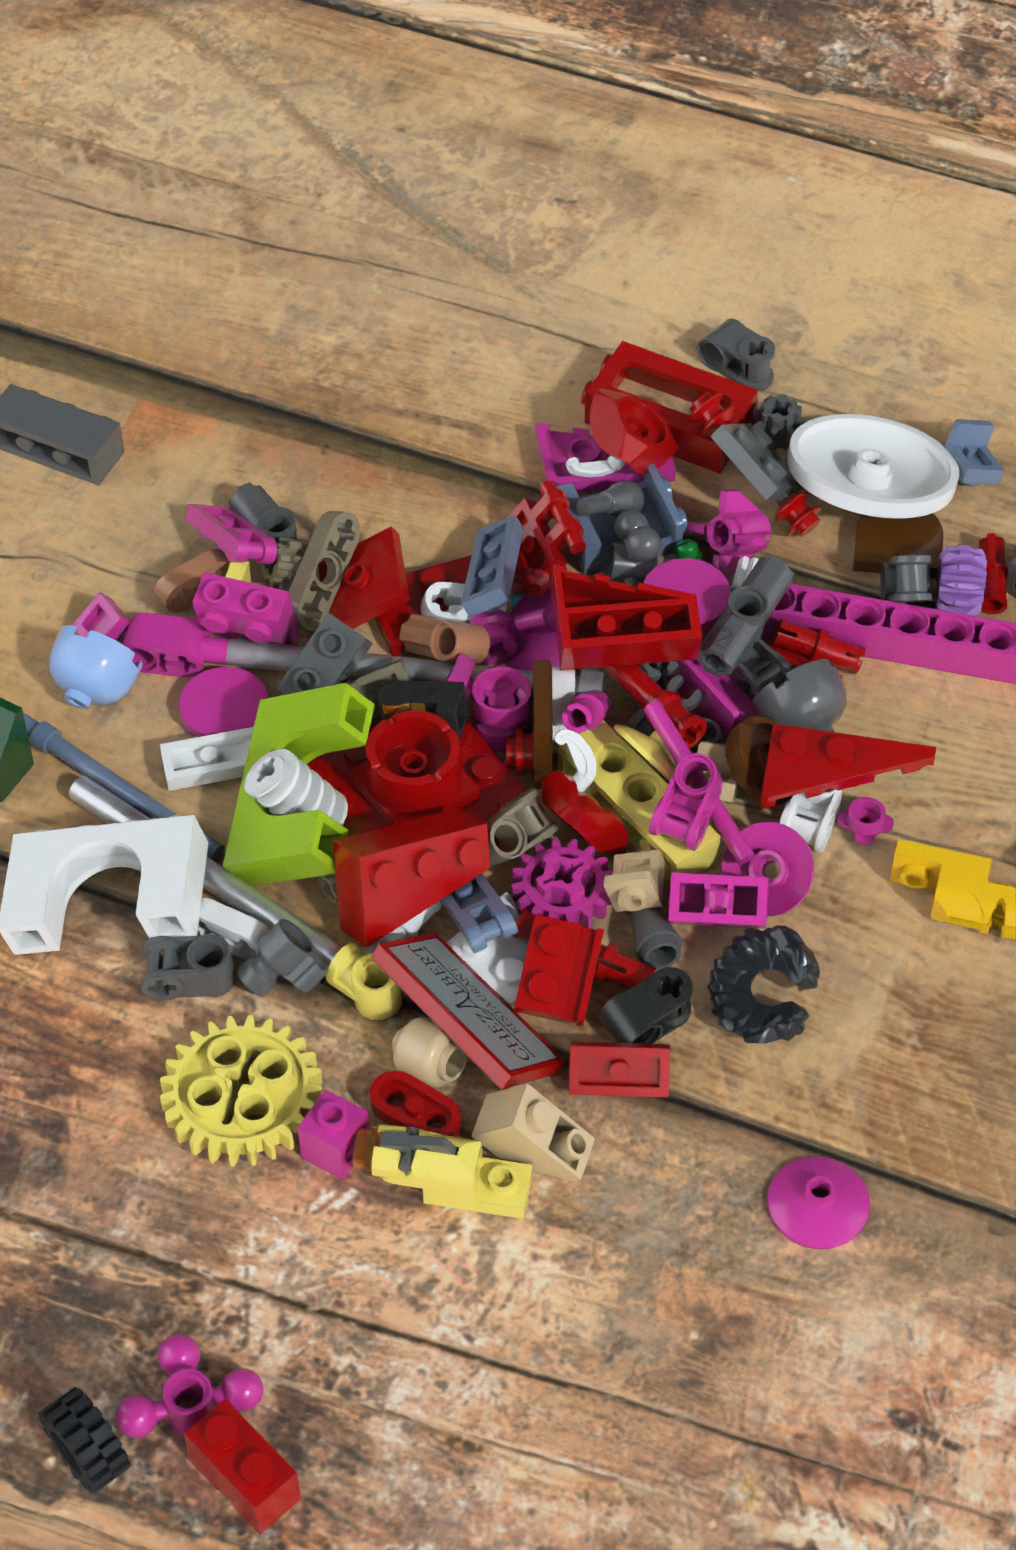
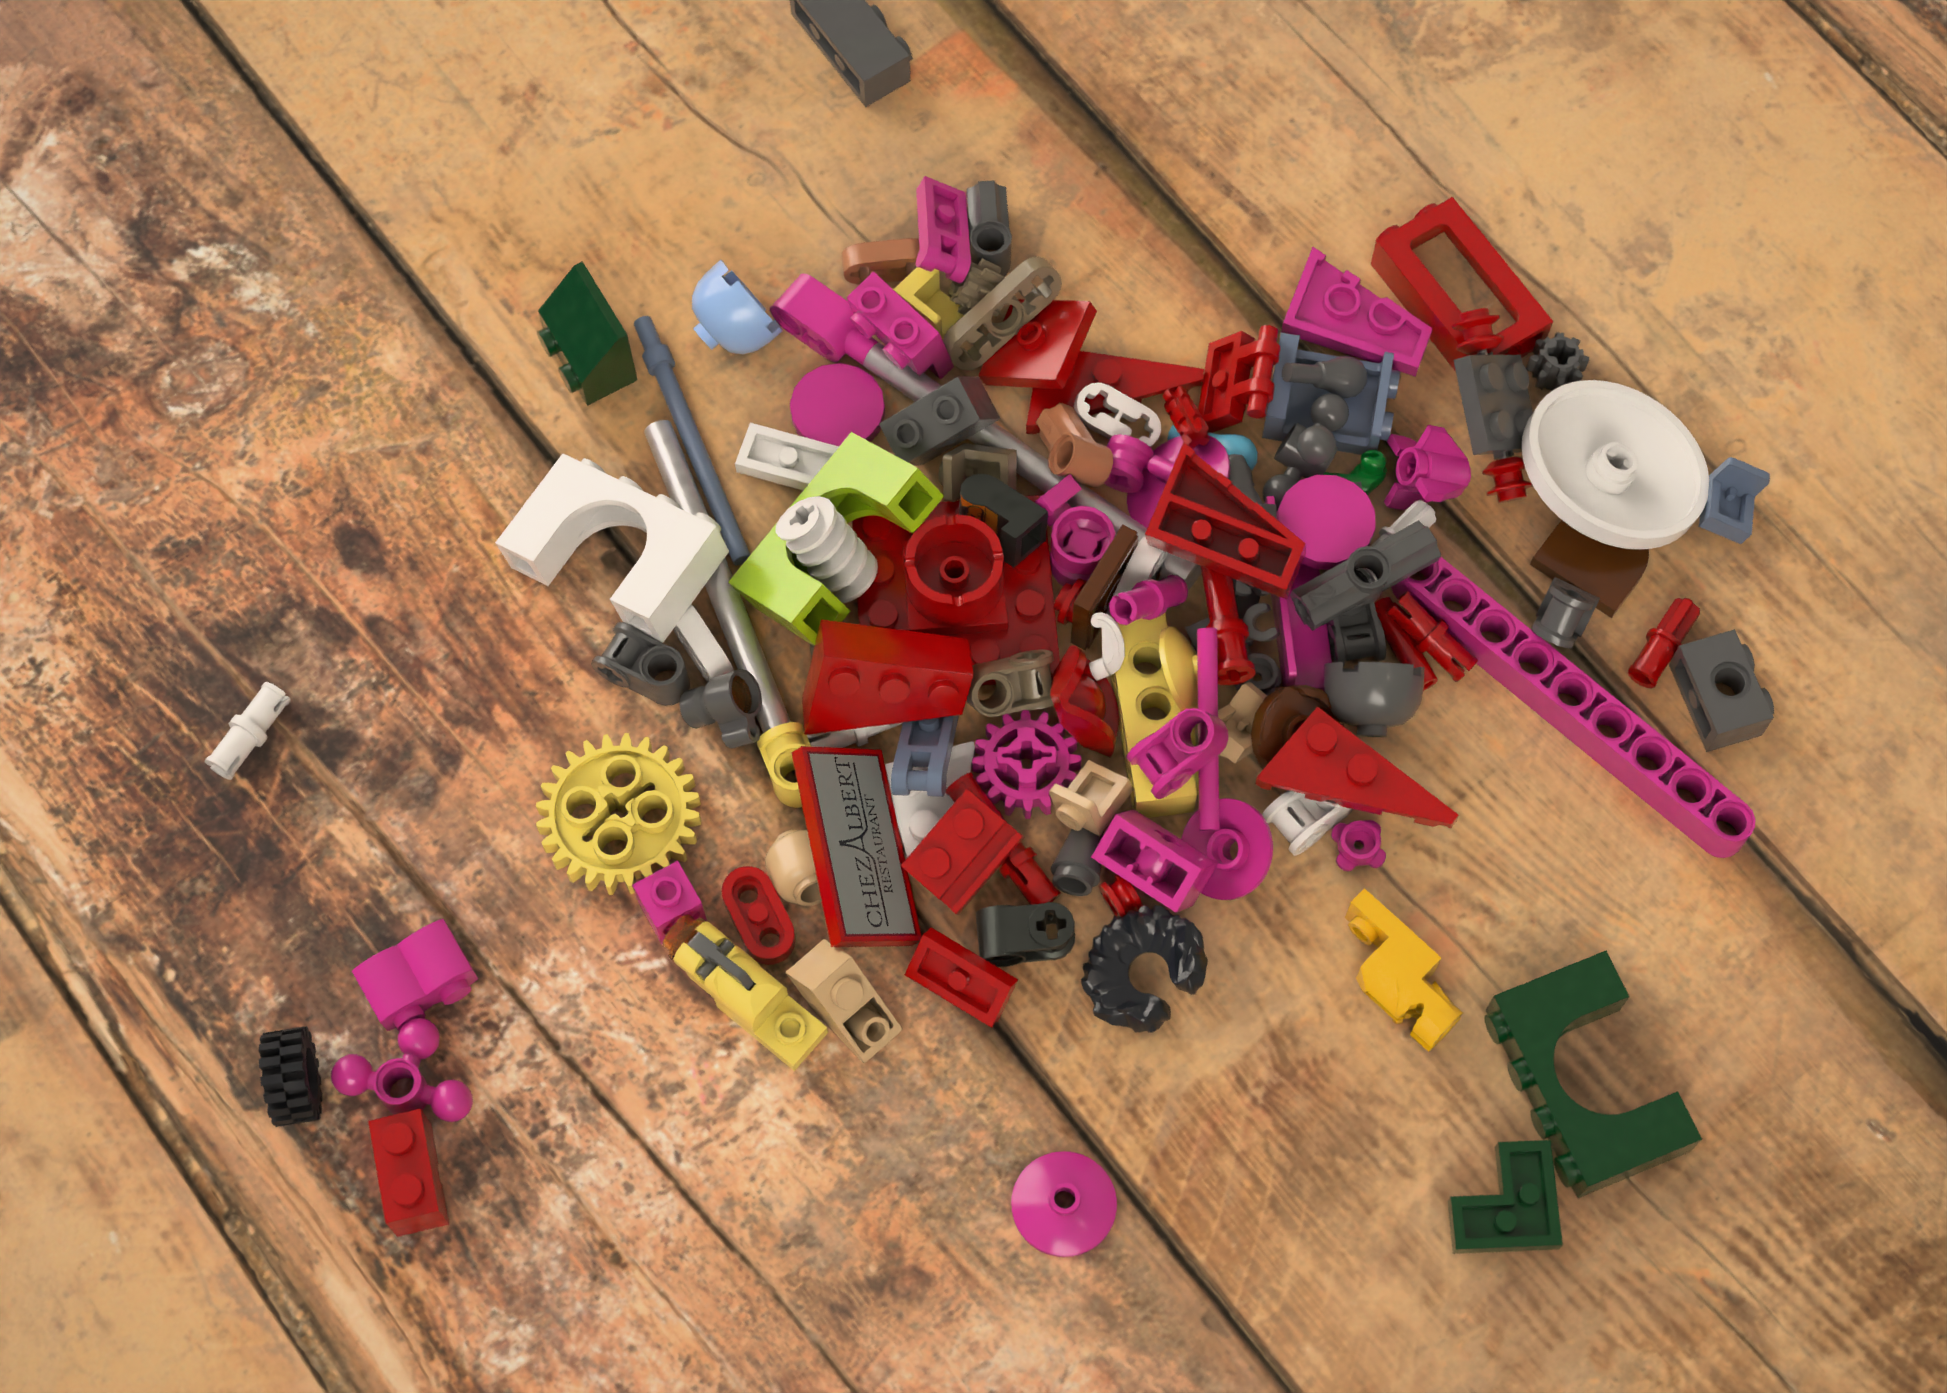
camera: 30 degrees right, 15 degrees up
(103, 617) = (773, 266): dark pink plate -> none
(143, 1306) = (415, 975): none -> dark pink brick
(492, 566) = (1161, 392): sand blue plate -> none
(628, 434) = (1383, 311): red hat -> none
(706, 945) = (1120, 896): none -> red bush
(738, 354) = (1569, 265): dark grey piece -> none
(961, 580) = (1616, 640): medium lavender gear -> none

